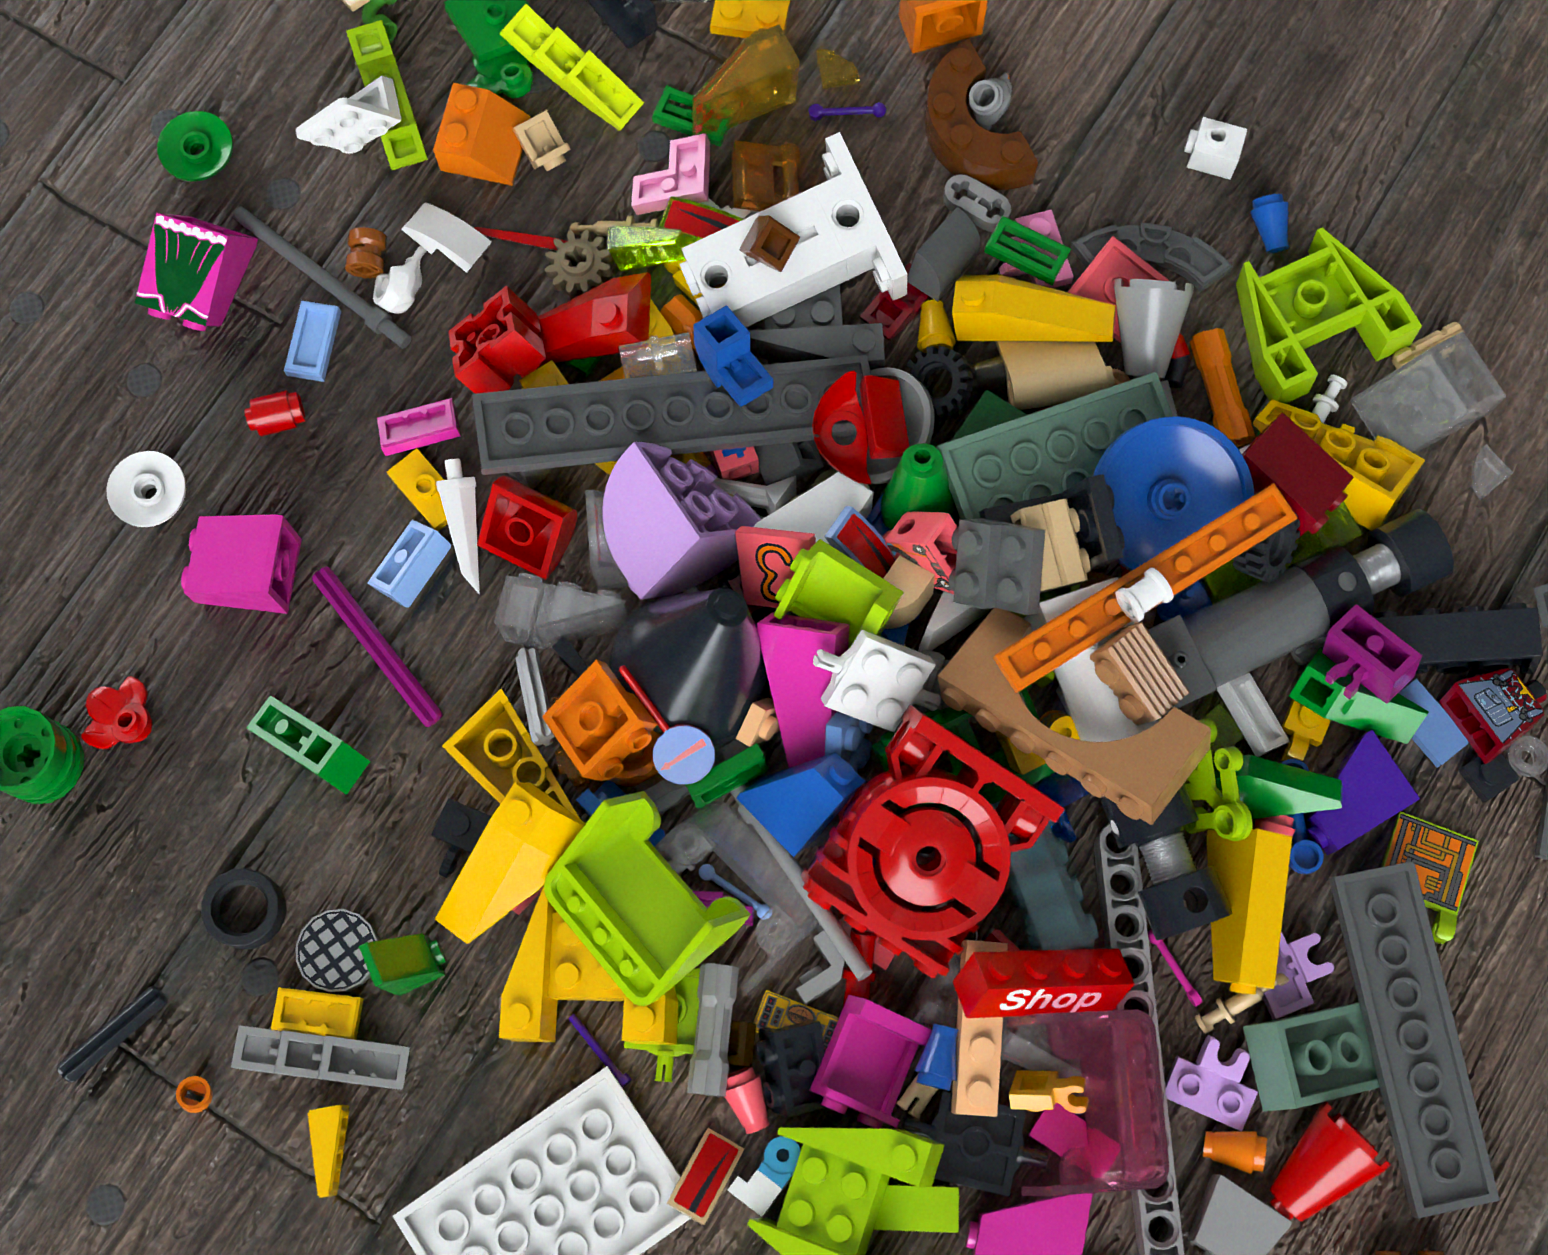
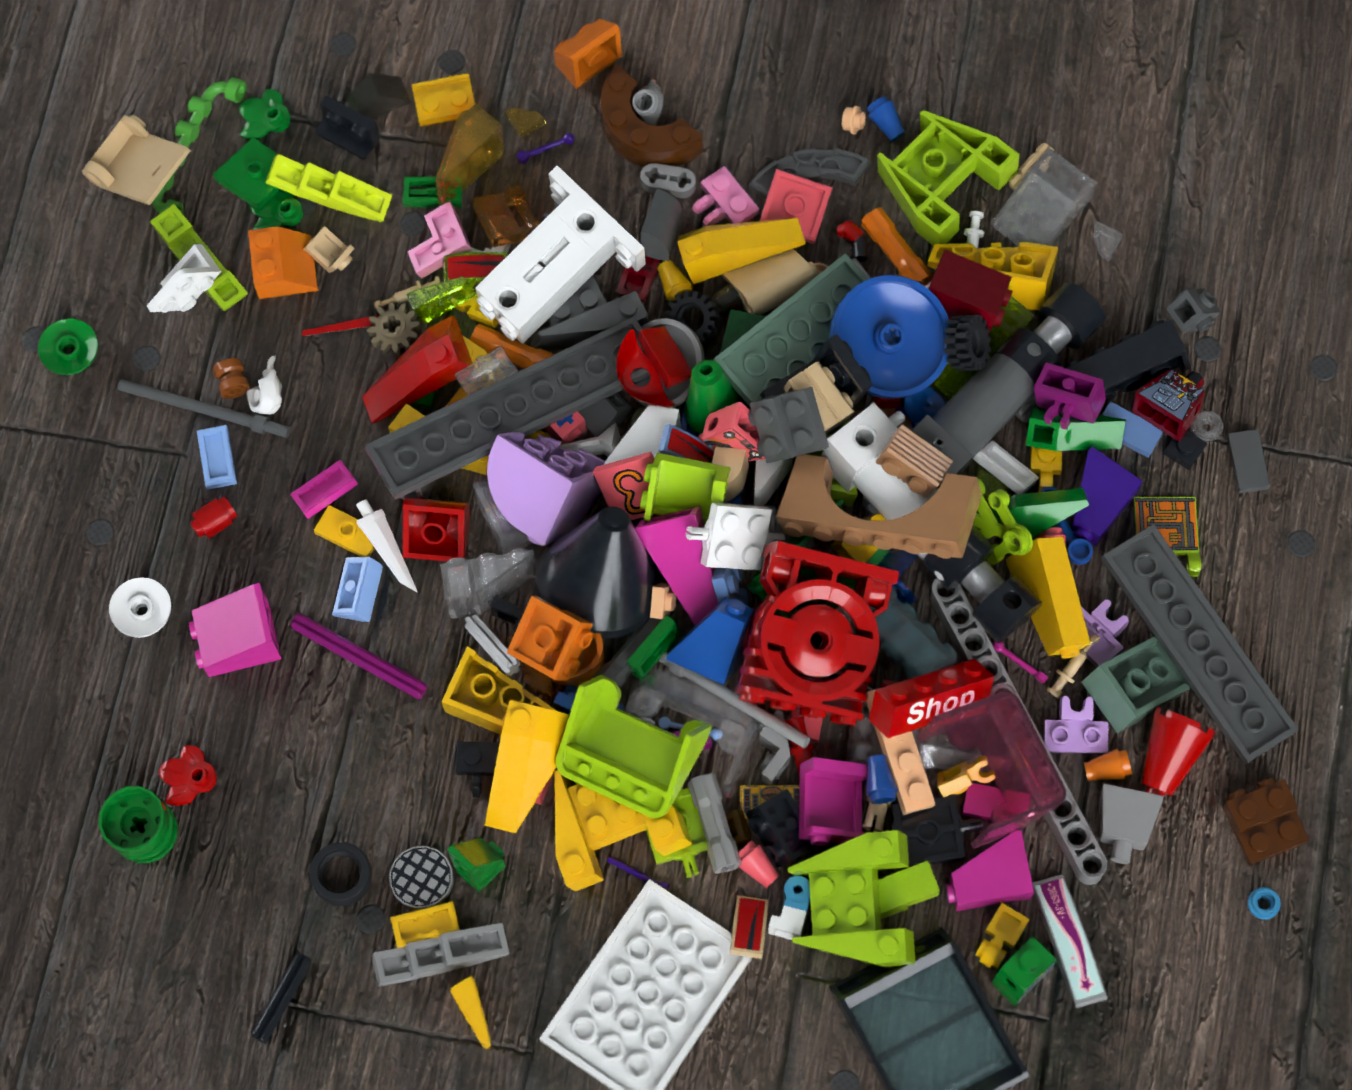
camera: 20 degrees left, 5 degrees down
(193, 270) = (107, 438): slope -> none
(198, 1086) = (358, 1009): orange hinge -> none
(308, 744) = (339, 742): green slope -> none
(449, 234) = (283, 341): white slope -> none
(497, 344) = (361, 406): red brick -> none
(682, 751) = (616, 639): piece -> none
(726, 356) = (537, 354): blue brick -> none
(769, 242) = (537, 260): reddish brown slope -> none
(1021, 262) = (720, 211): green tile -> none
(1144, 595) = (896, 405): white bush -> none
(1150, 323) = (827, 221): light grey cone -> none
(1181, 567) = (895, 402): orange tile -> none
(1215, 147) = (824, 79): white brick -> none
(1231, 209) = (853, 119): none -> light nougat plate

